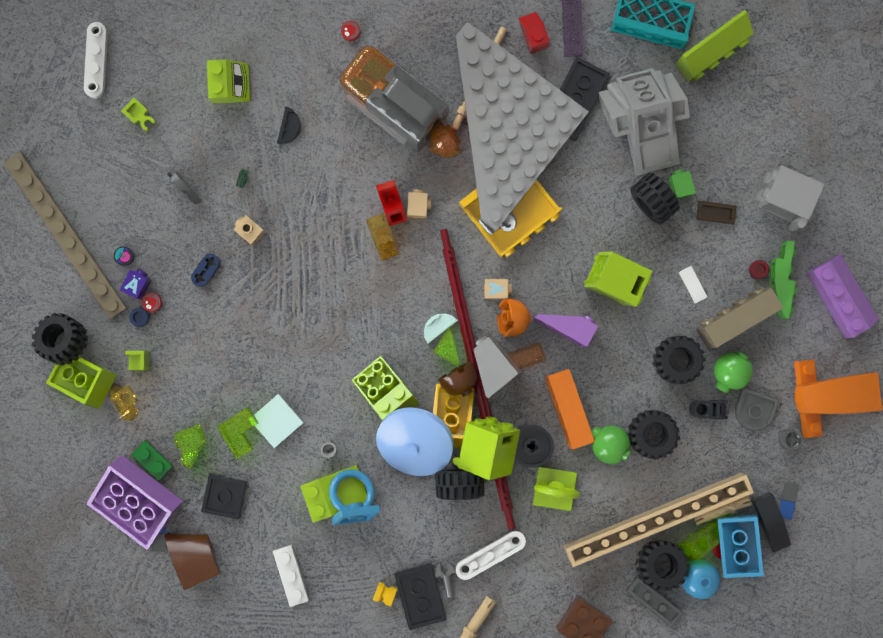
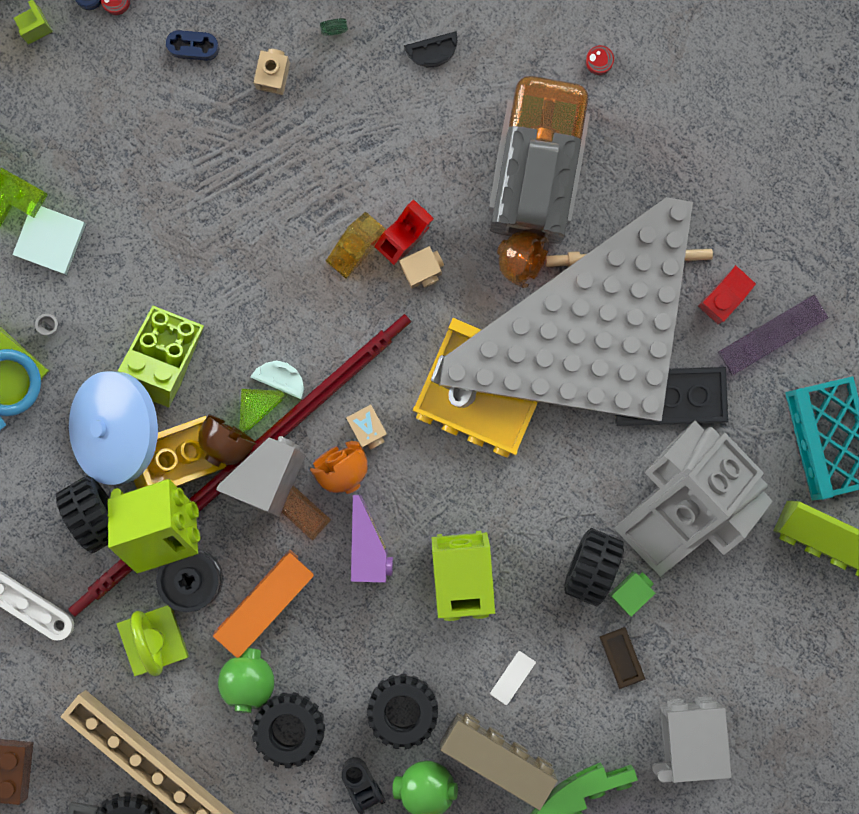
camera: 65 degrees right, 0 degrees up
(758, 269) = (578, 753): dark red tile -> none

